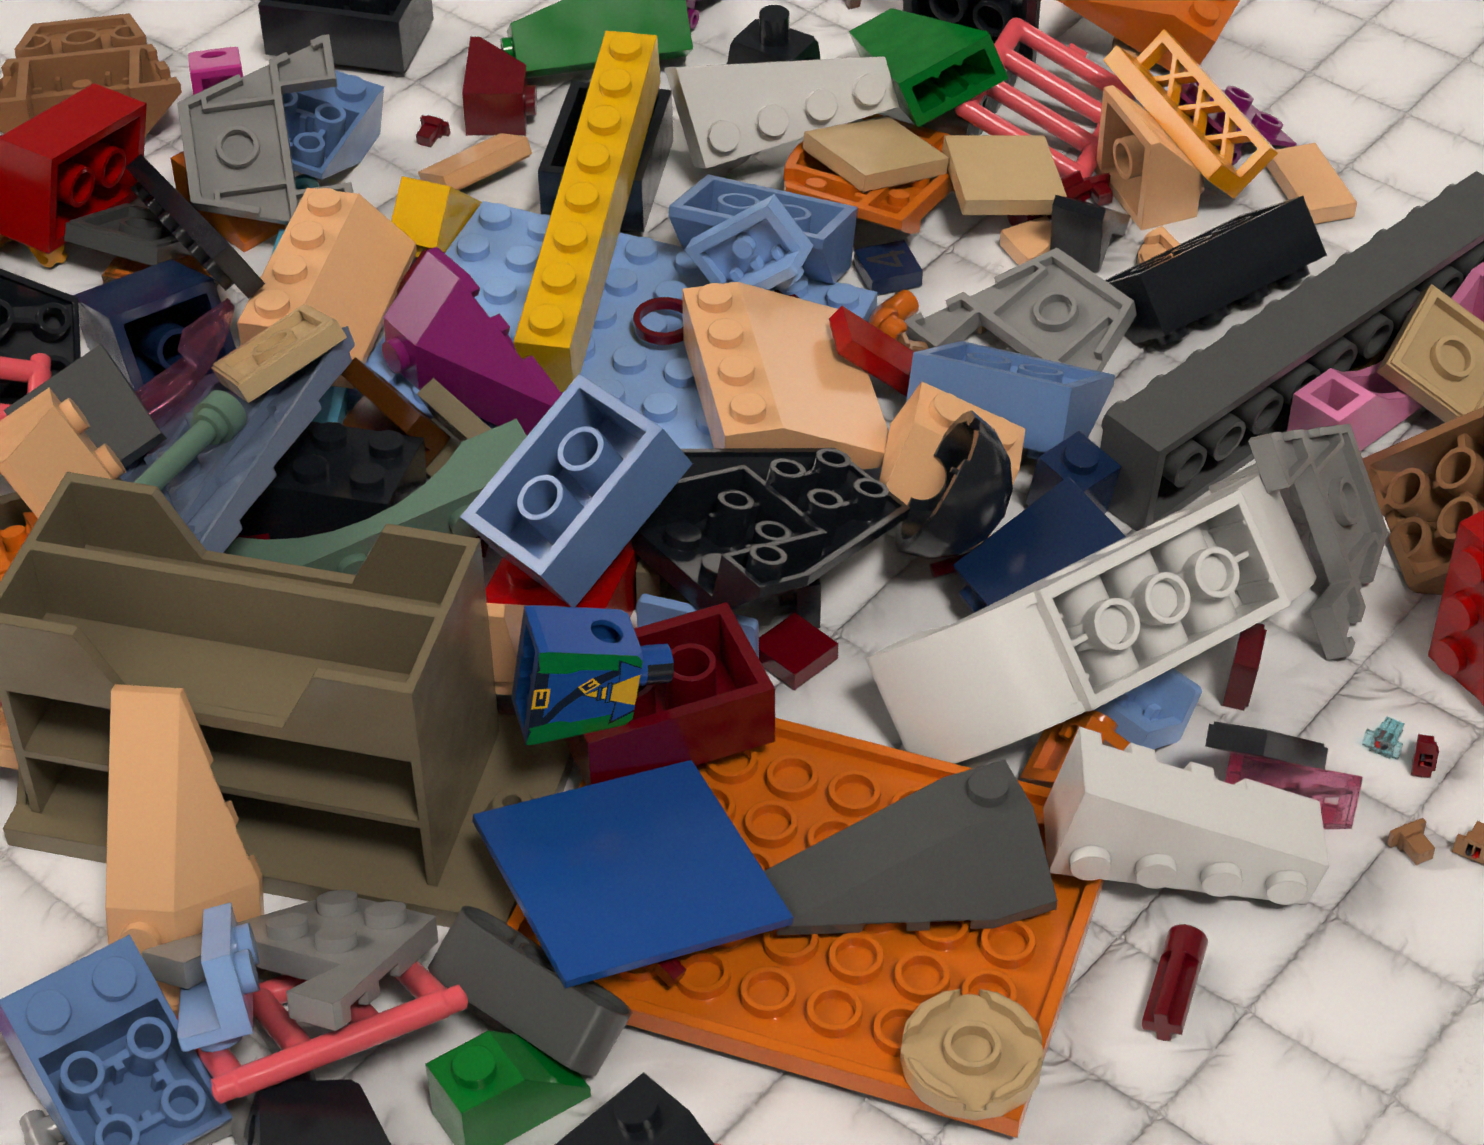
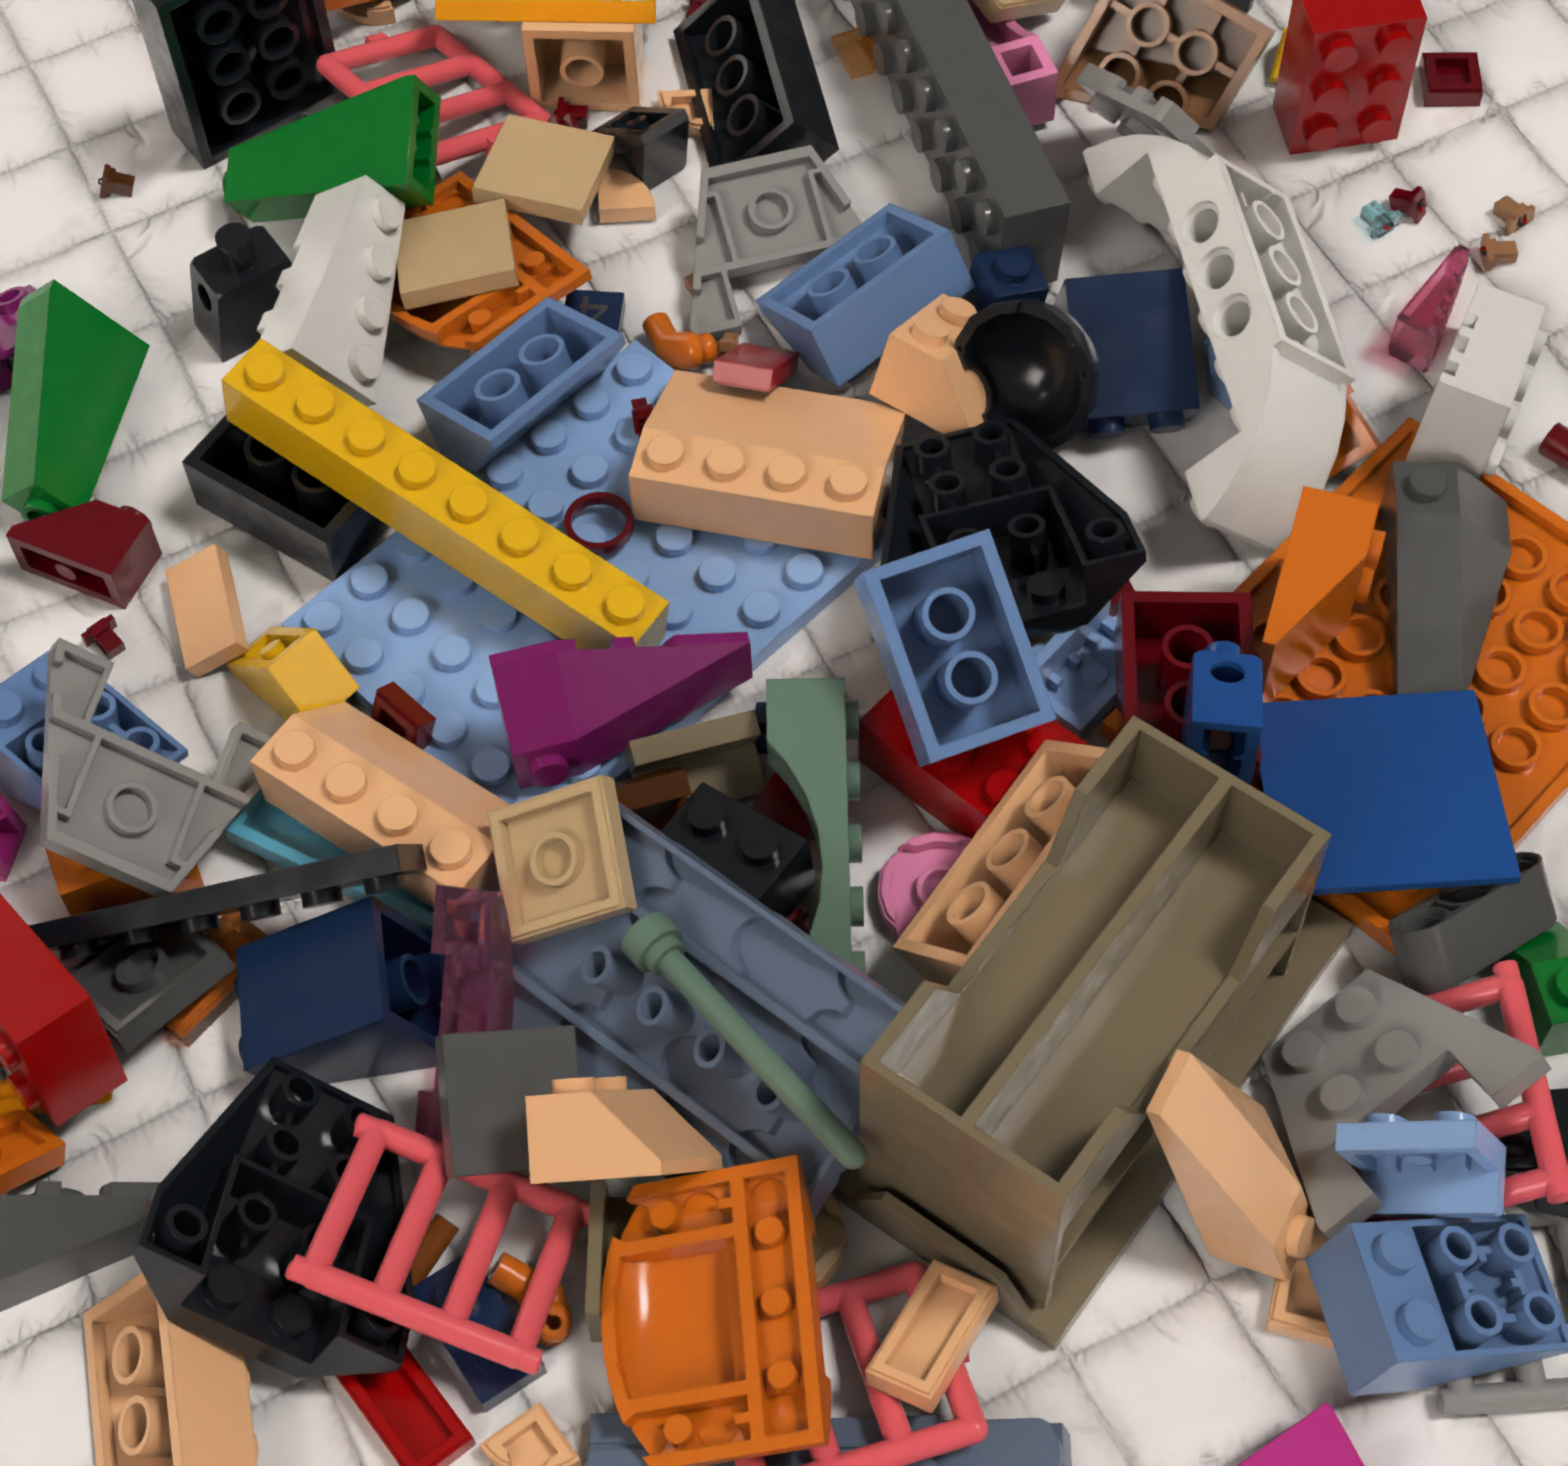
camera: 65 degrees left, 15 degrees up
(753, 248) = (601, 406): light blue bracket -> none
(807, 742) = (1321, 577): none -> orange slope
(1266, 744) = (1400, 290): black tile -> none

